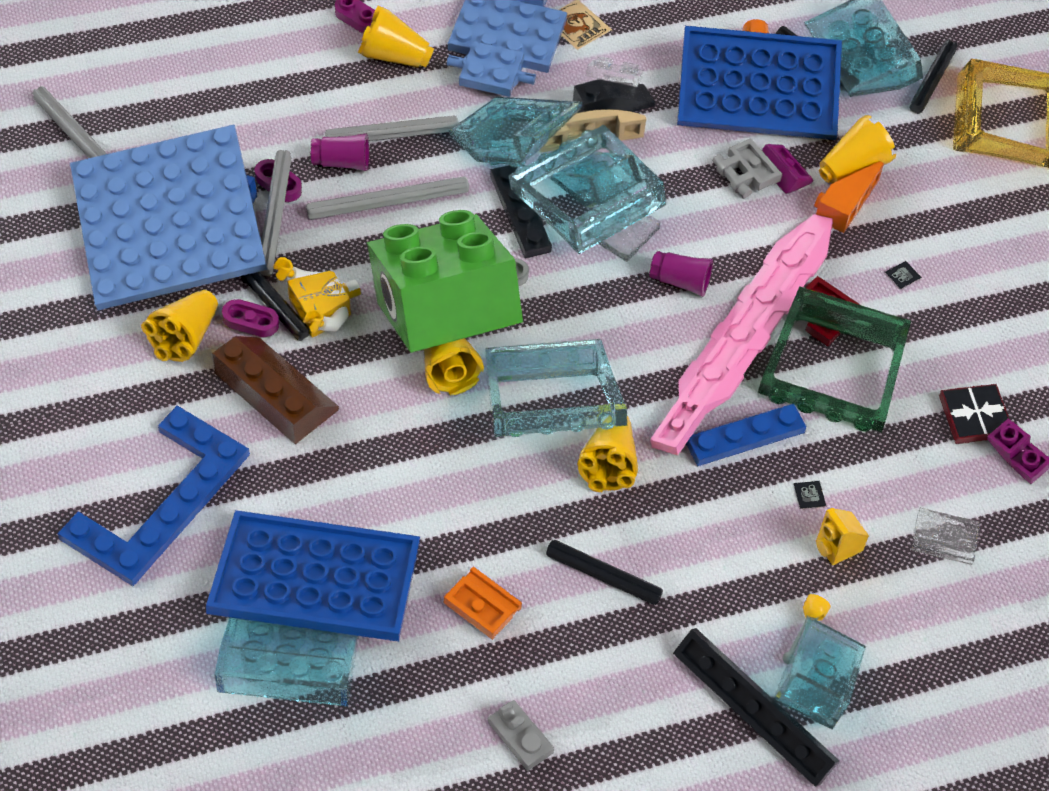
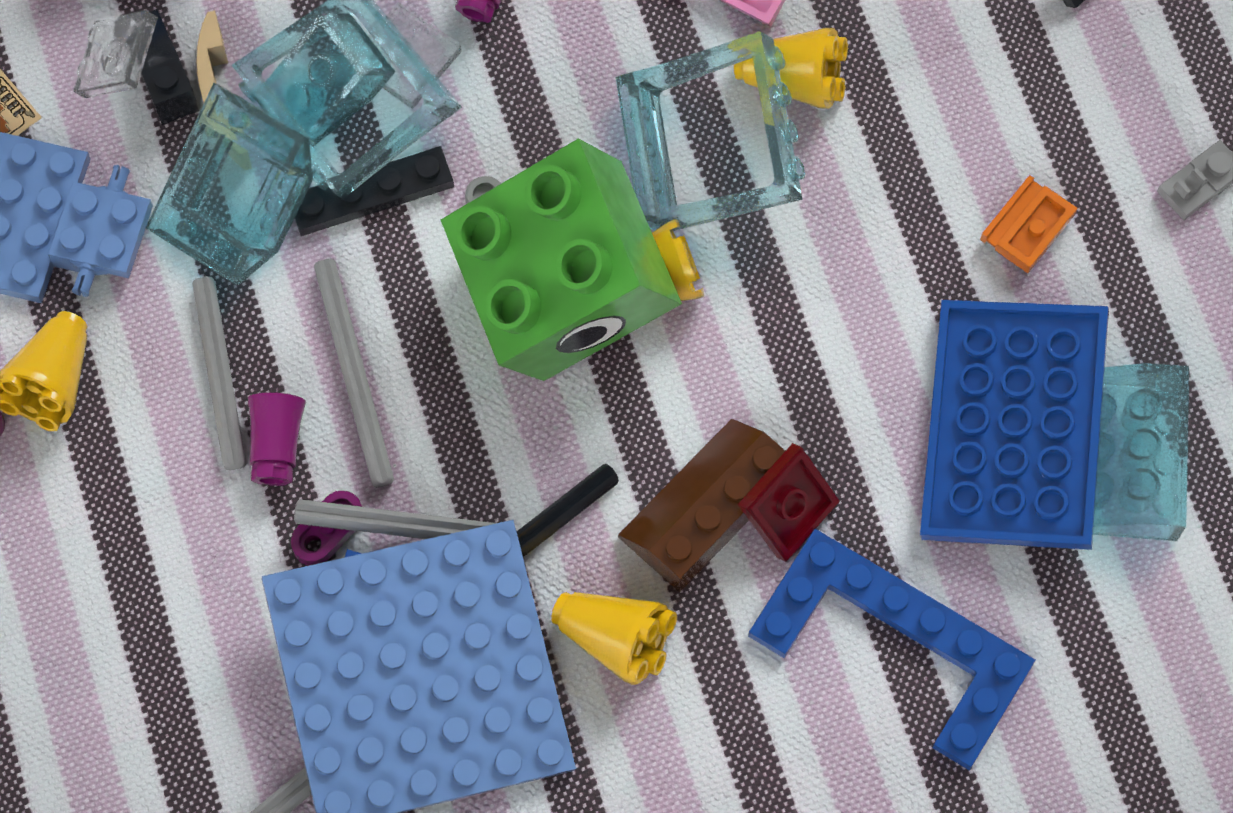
camera: 85 degrees left, 15 degrees up
(251, 318) = (590, 547): magenta plate -> none
(264, 425) = (789, 502): none -> dark red tile
(317, 296) = (559, 448): torso -> none
(604, 572) = (967, 84): black axle -> none

